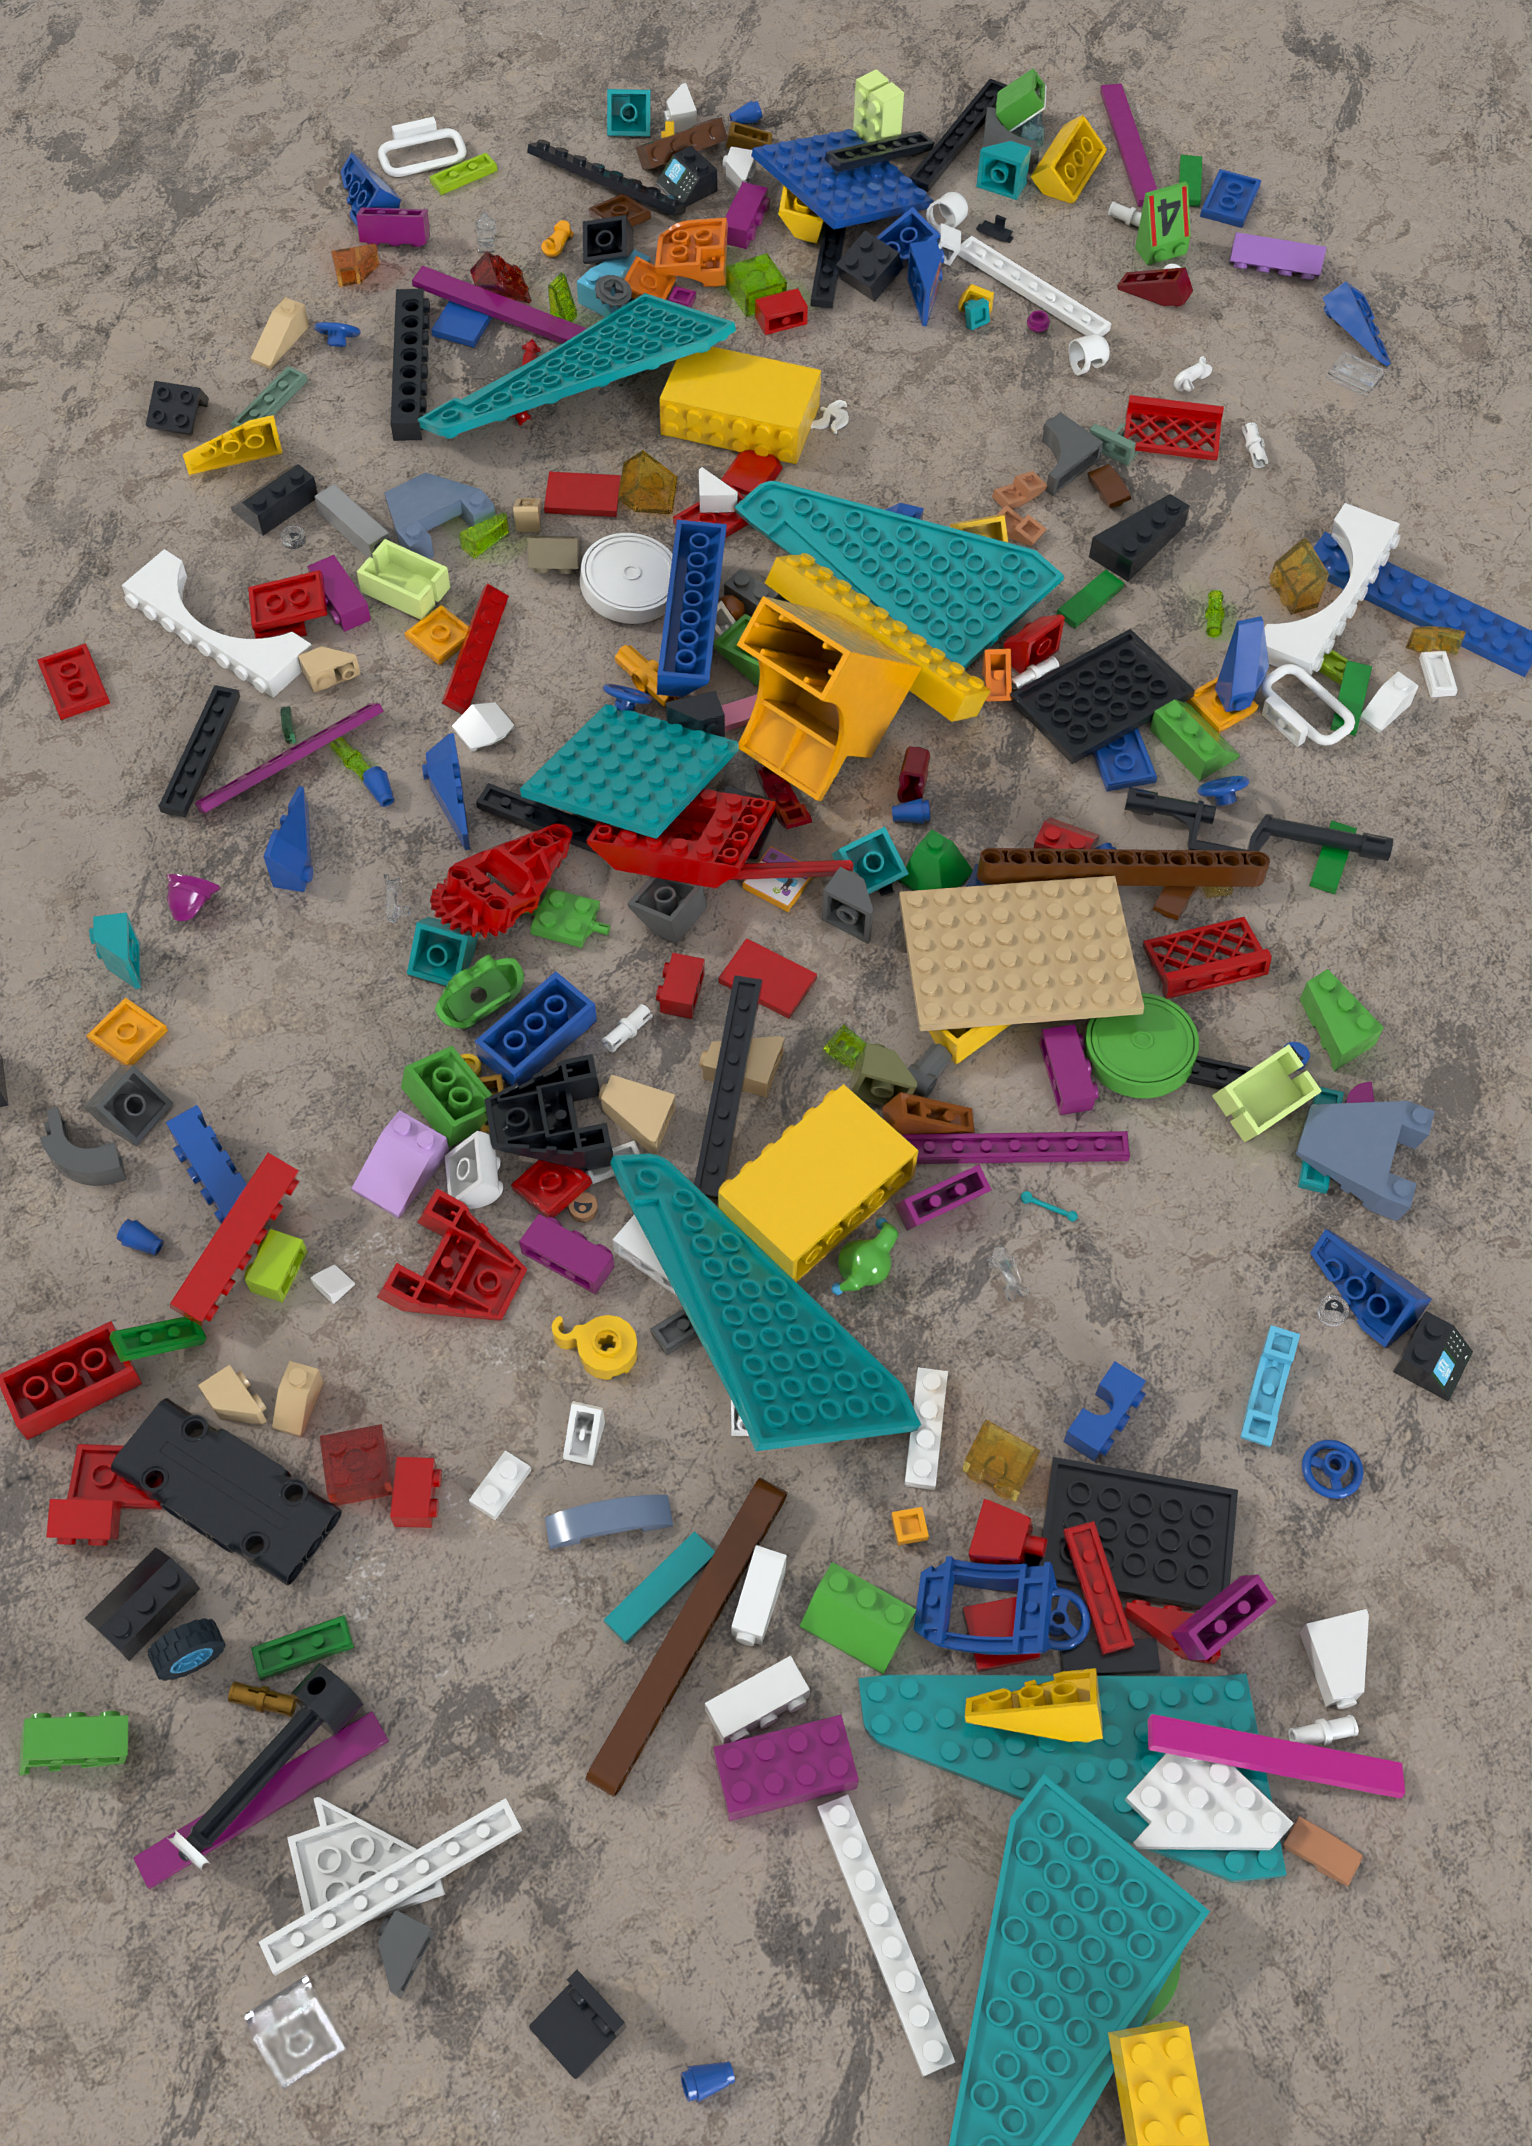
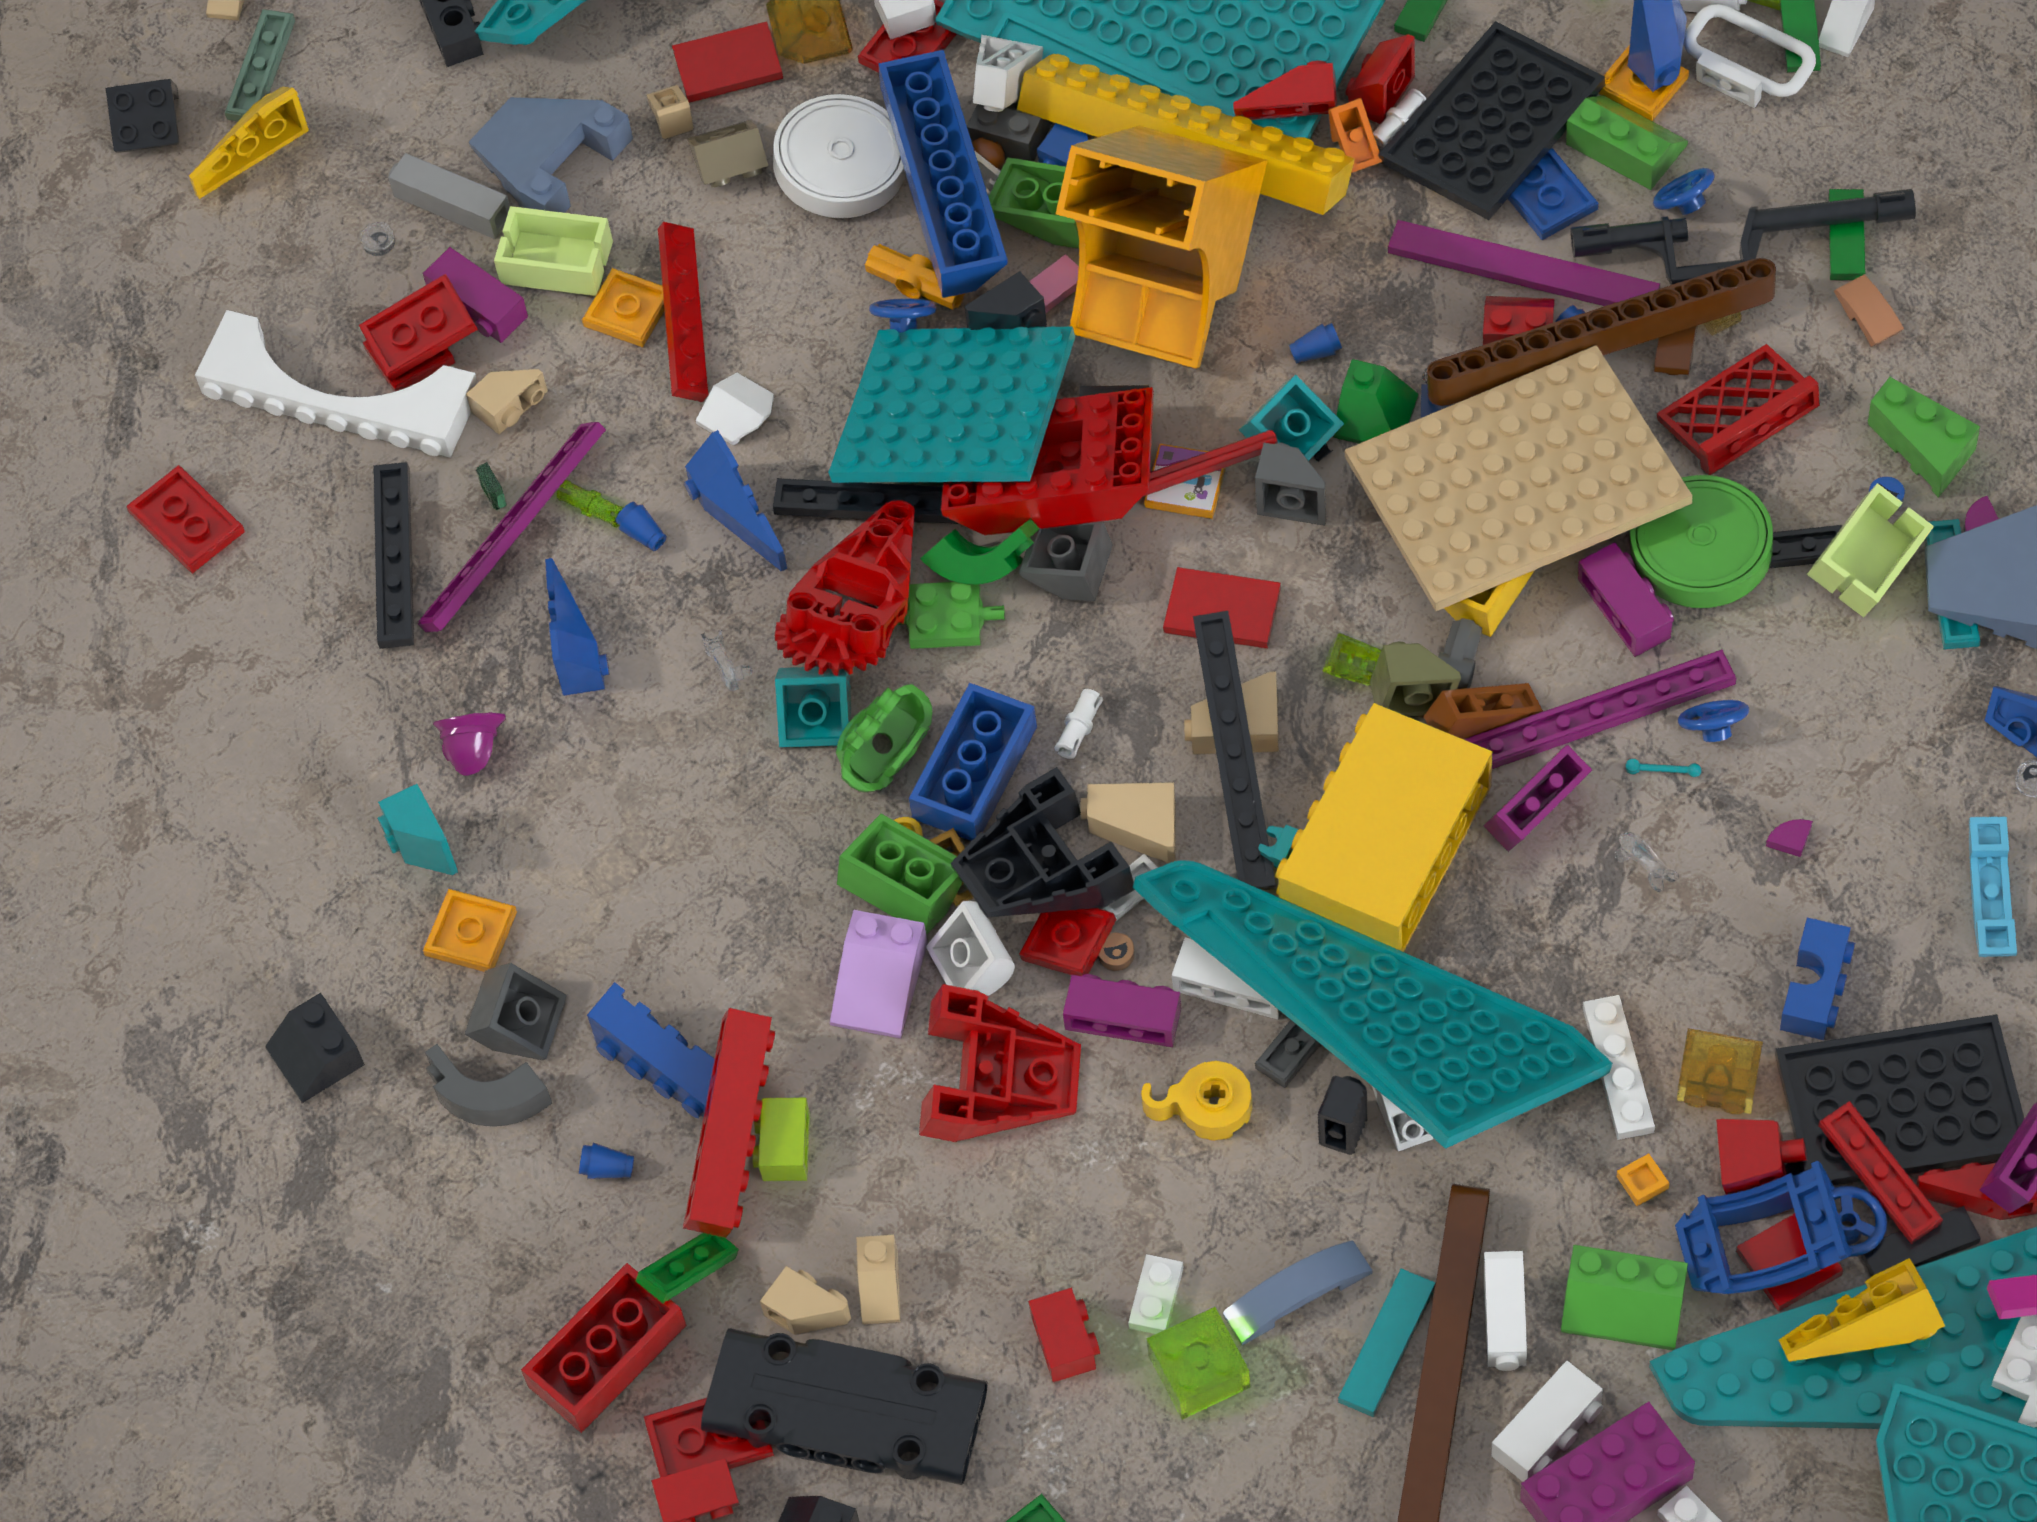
camera: 10 degrees left, 0 degrees up
(277, 499) = (334, 194): black slope -> none
(332, 1283) = (857, 1138): white slope -> none
(356, 1465) = (983, 1327): clear red brick -> none
(483, 535) = (625, 160): clear neon green slope -> none
(506, 1552) = (1198, 1363): none -> clear neon green brick
(583, 1433) = (1229, 1203): white slope -> none
(596, 886) = (974, 564): none -> green arch
(681, 985) = (1123, 650): red brick -> none
(696, 1392) = (1342, 1114): none -> black brick
(734, 1169) = (1282, 847): none -> teal tile
(759, 552) = (1001, 71): none -> white wedge
(788, 809) = (1135, 368): dark red slope -> none
(866, 1260) = (1476, 900): bright green piece -> none
(913, 774) = (1302, 297): dark red brick -> none
(964, 631) = (1299, 92): none -> red slope
(1078, 801) = (1514, 265): none -> magenta tile
(1102, 1181) = (1714, 719): none -> blue piece
(1126, 1292) = (1790, 836): none -> magenta tile
(1331, 916) = (1870, 309): none -> nougat slope

